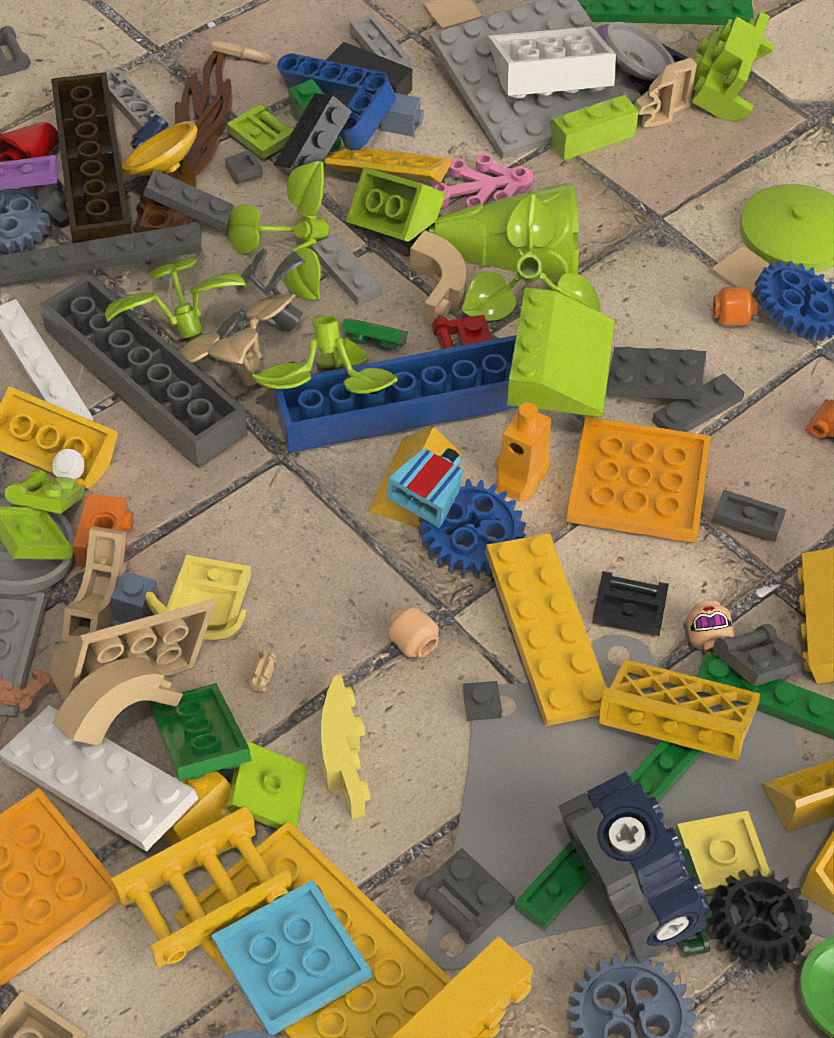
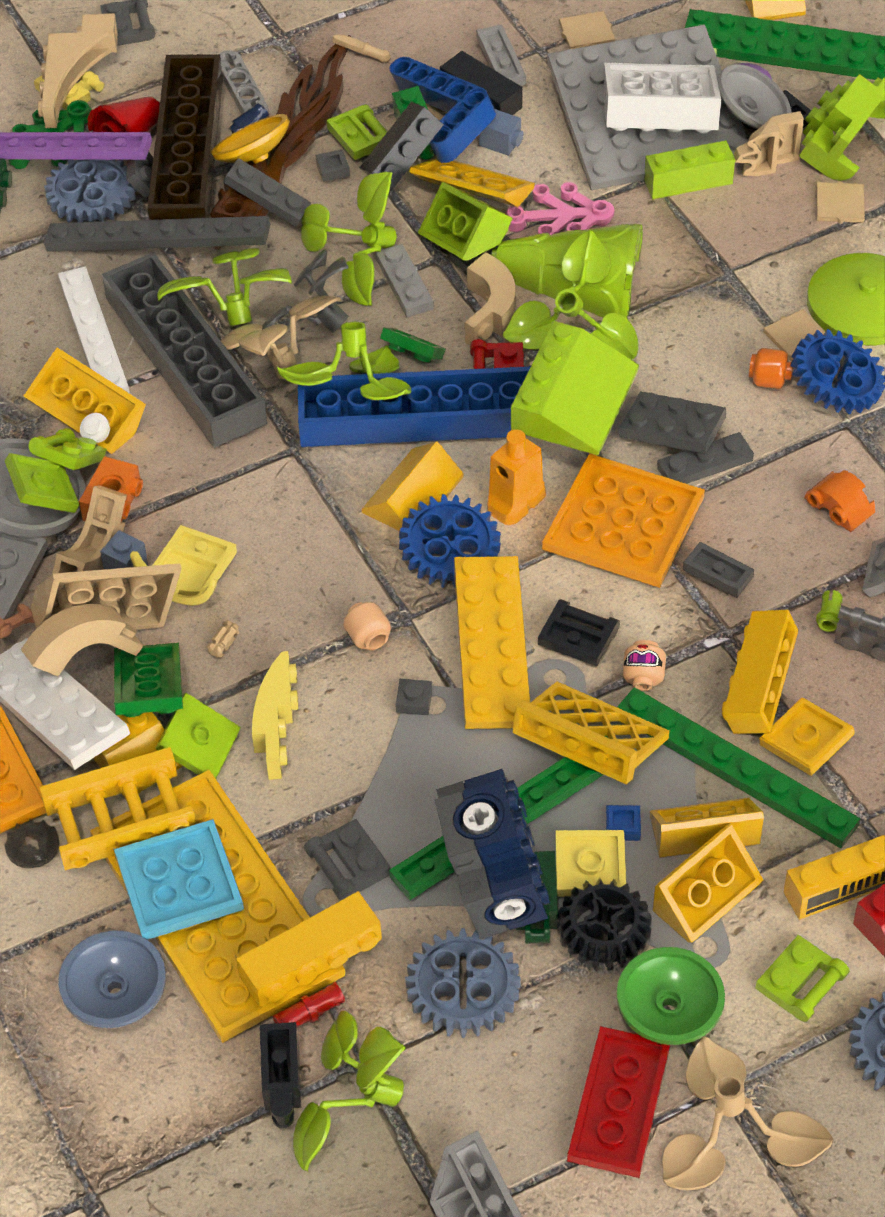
camera: 15 degrees right, 0 degrees up
(110, 957) = (25, 854): none -> clear smoke gear
(427, 484) = (412, 493): medium azure torso -> none
(739, 798) = (624, 818): none -> blue tile
(742, 140) = (840, 202): none -> tan piece
(762, 664) = (681, 705): dark grey plate -> none

